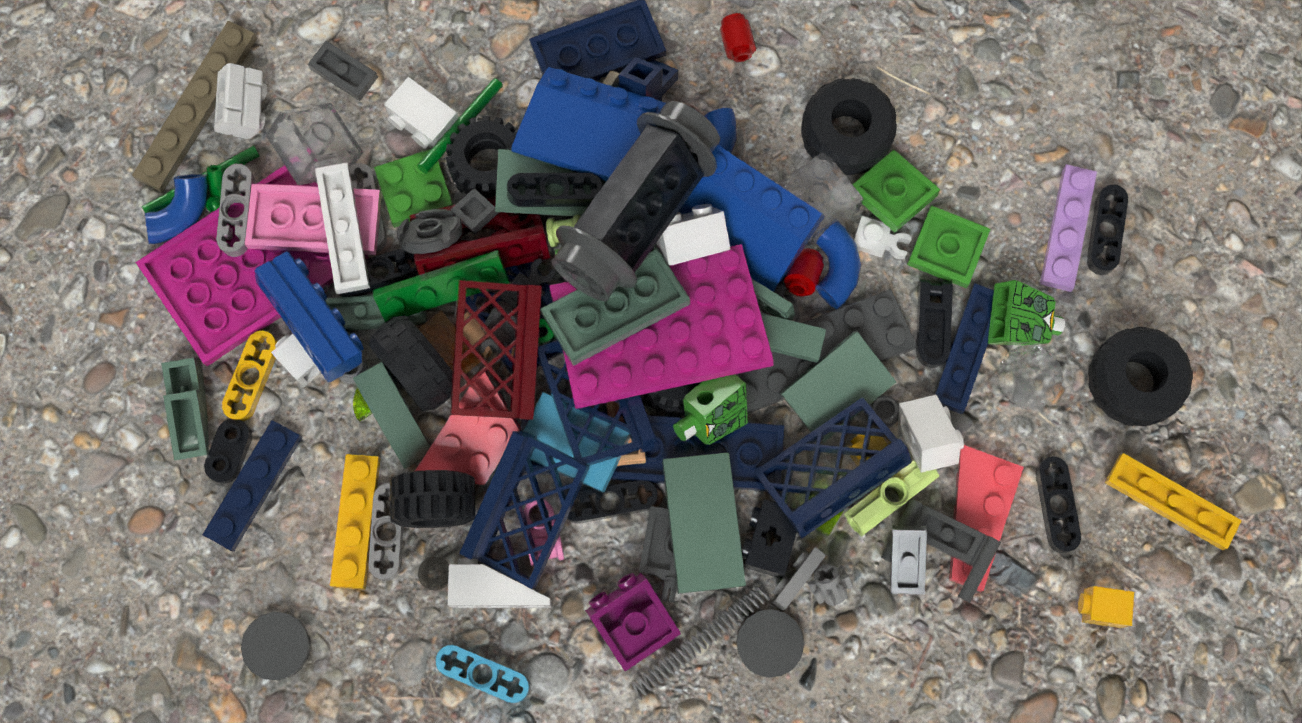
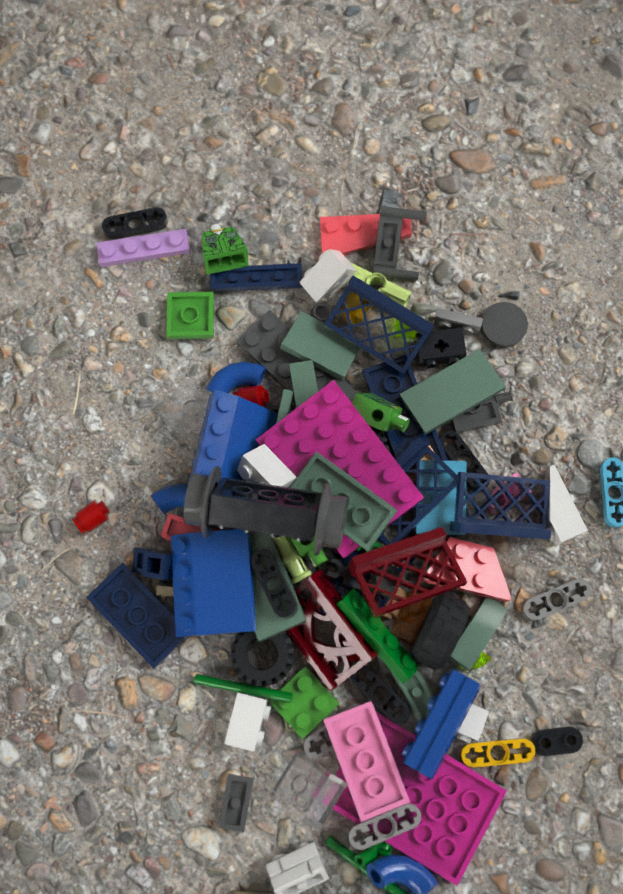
camera: 110 degrees left, 0 degrees up
(186, 408) = (543, 787): sand green slope -> none
(252, 486) = (571, 710): dark blue plate -> none
(342, 228) = (367, 730): white plate -> none
(354, 522) = (559, 625): yellow plate -> none
(423, 573) = (560, 556): clear smoke plate -> none
(429, 231) = (341, 663): dark grey tile -> none
(432, 499) = (526, 571): black tyre -> none
(474, 211) = (310, 640): dark grey plate -> none
(632, 620) = (534, 412): magenta plate -> none
(688, 648) = (534, 369): light grey piece -> none
(830, 584) = (457, 299): light grey gear -> none
(855, 100) = (115, 396): black tyre -> none
(875, 237) = (203, 364): white plate -> none
(895, 190) = (165, 362): bright green plate -> none
(908, 559) = (413, 260): plate -> none
(934, 323) = (247, 305): black plate -> none
(1071, 527) = (351, 187): black beam -> none
(1106, 606) = (387, 138): yellow brick -> none
(1162, 358) = (226, 150): black tyre -> none
(1173, 501) = (301, 126): yellow plate -> none

